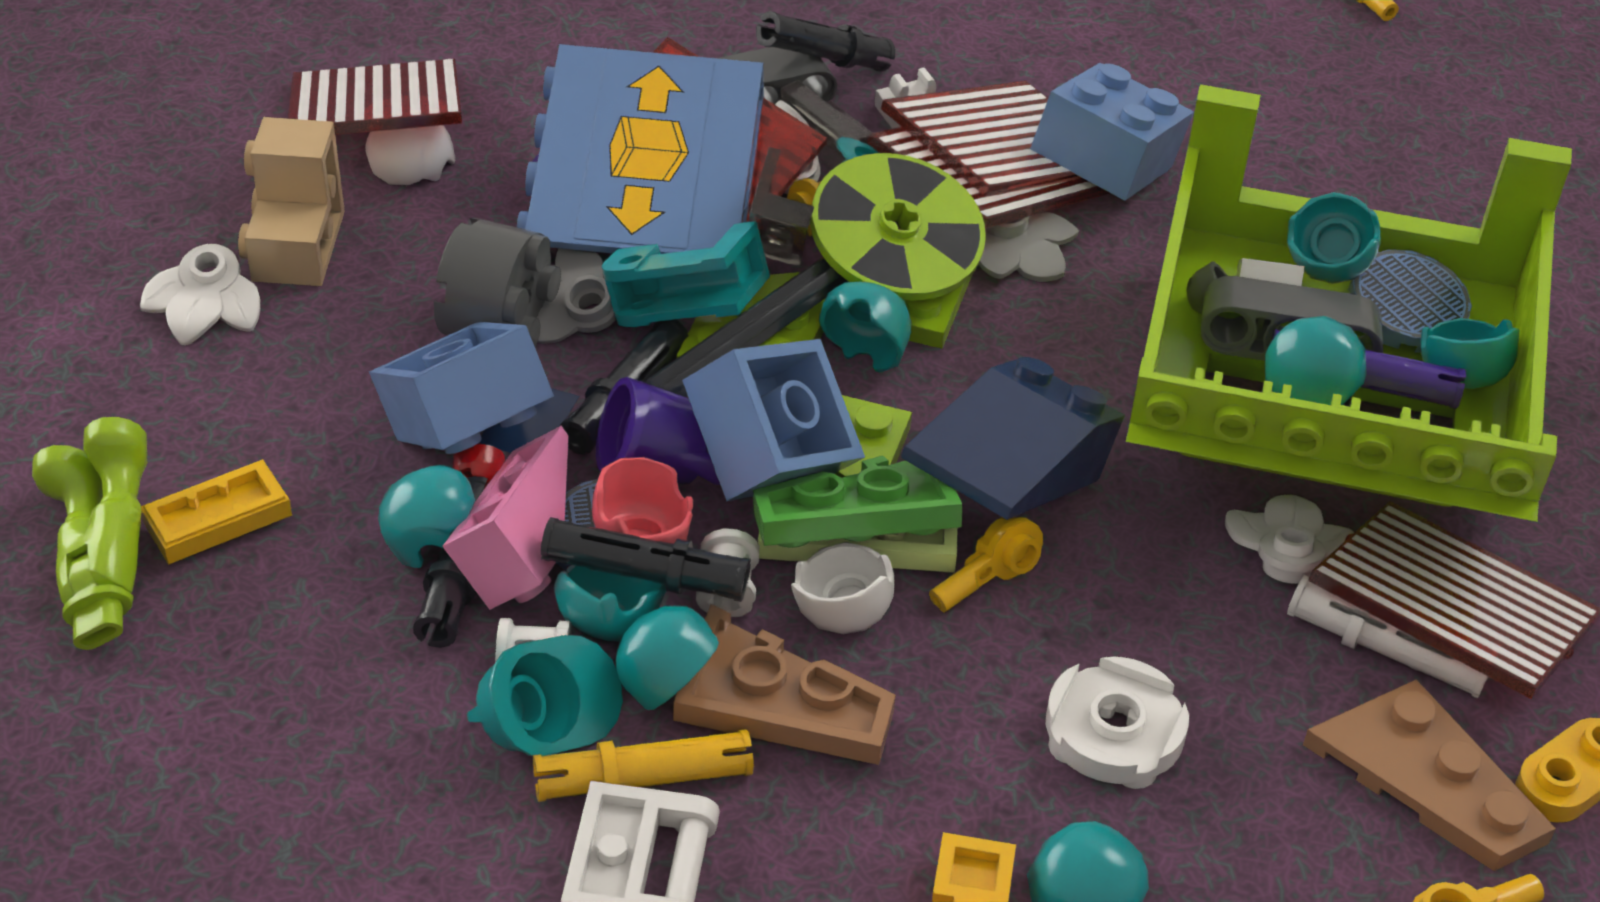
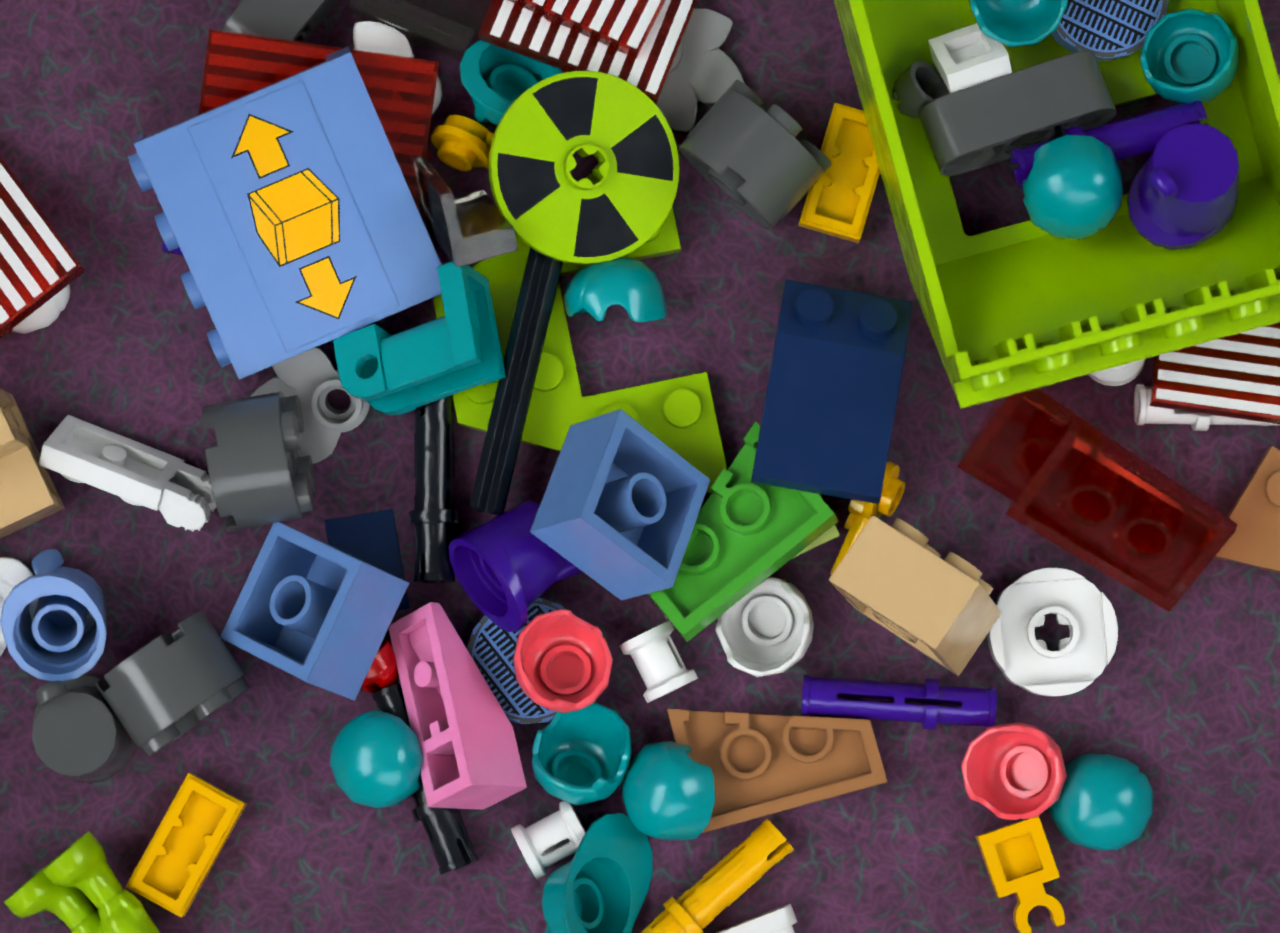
camera: 25 degrees left, 40 degrees up
(202, 389) = (79, 731): none -> dark grey hat
(251, 302) = (55, 620): none -> medium blue hat
(304, 381) = (173, 684): none -> dark grey brick
(393, 273) = (130, 471): none -> white hinge
(661, 562) = (604, 722): black pin -> none
(955, 715) = (975, 704): none -> dark purple pin
(1002, 596) = (916, 594): none -> tan brick
(1013, 791) = (1014, 770): none -> coral hair
(1044, 283) = (754, 155): none -> dark grey brick
(1108, 350) = (844, 193): none -> yellow plate
(1225, 631) = (1095, 496): none -> clear red slope
(1431, 378) = (1185, 188): none -> dark purple hat

